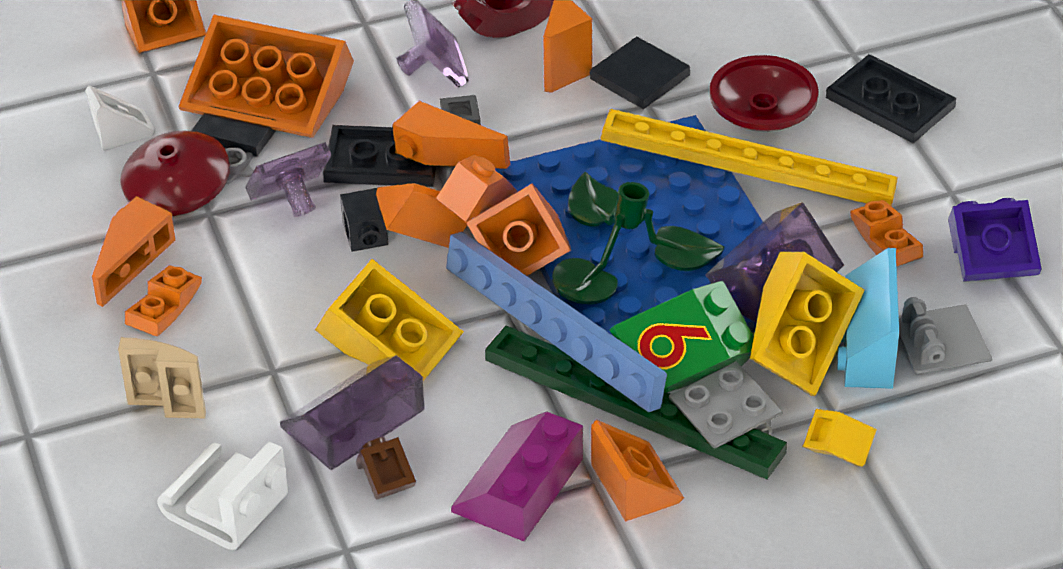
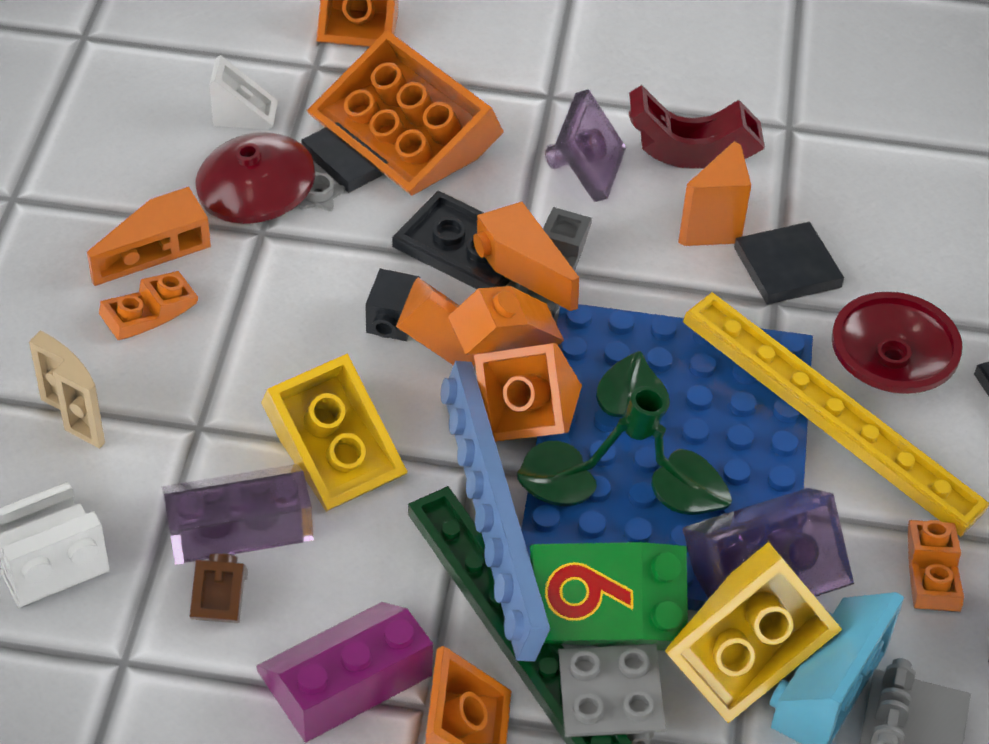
camera: 25 degrees right, 5 degrees up
(289, 175) = (348, 226): clear purple tile -> none

